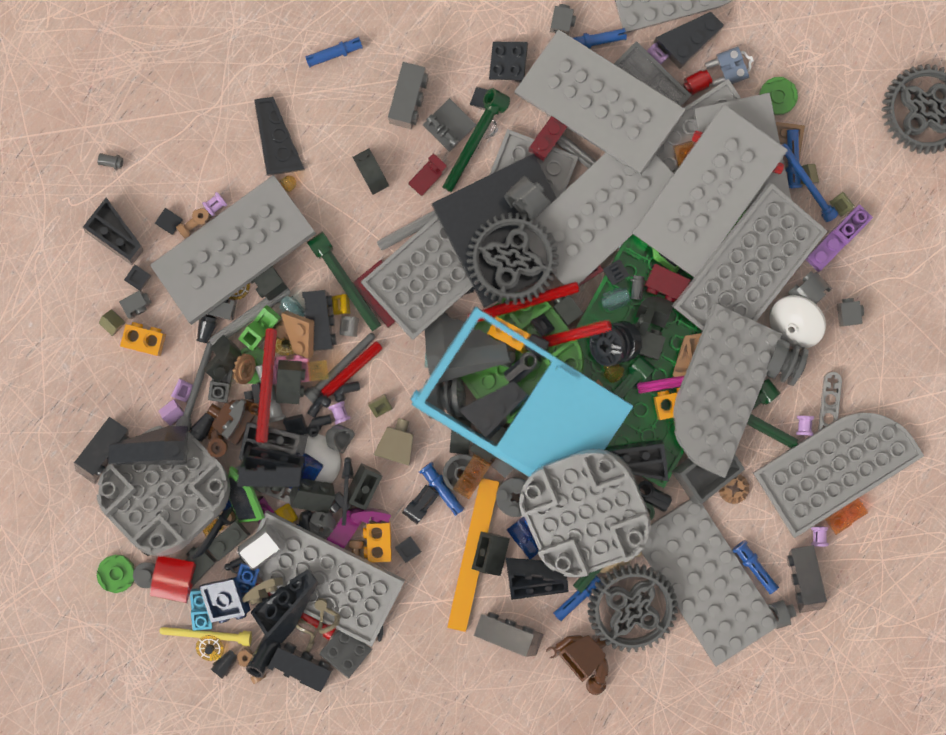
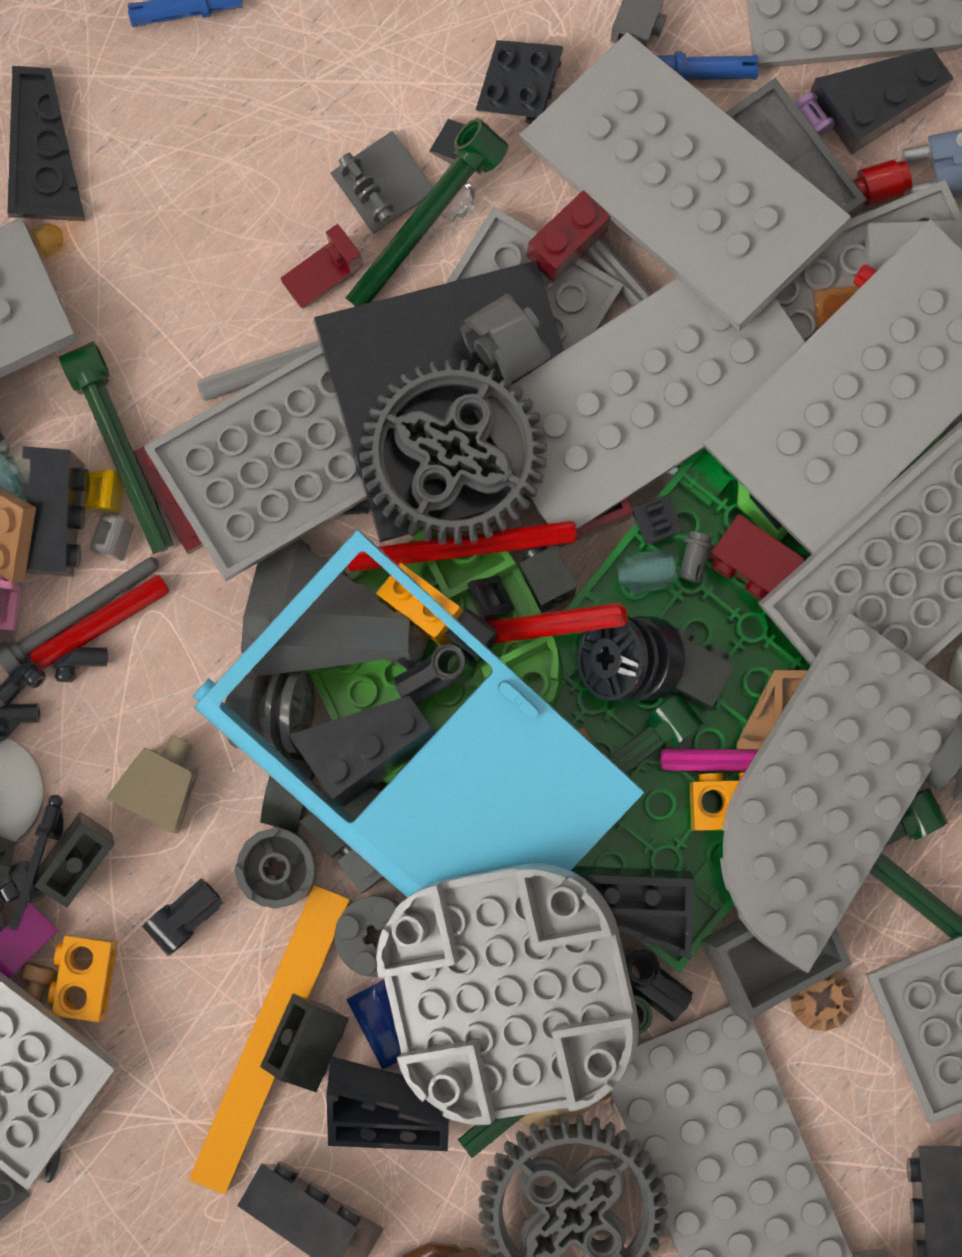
camera: 15 degrees right, 5 degrees down
(318, 370) = (29, 611): clear yellow tile -> none
(339, 412) = (57, 703): lavender bush -> none
(339, 438) = (46, 753): dark grey piece -> none
(359, 515) = (54, 917): magenta slope -> none
(371, 171) = (211, 243): pearl dark grey brick -> none
(380, 405) = (141, 704): olive slope -> none
(408, 95) = (309, 107): dark grey piece -> none
(408, 549) = (140, 1003): black plate -> none
(436, 481) = (223, 876): blue pin -> none
(471, 476) = (292, 877): clear orange slope -> none
(571, 603) = (459, 1171): blue pin -> none
(613, 373) = (617, 718): clear yellow tile -> none
(654, 311) = (719, 608): pearl dark grey brick -> none
(750, 559) = (833, 1150): blue pin -> none

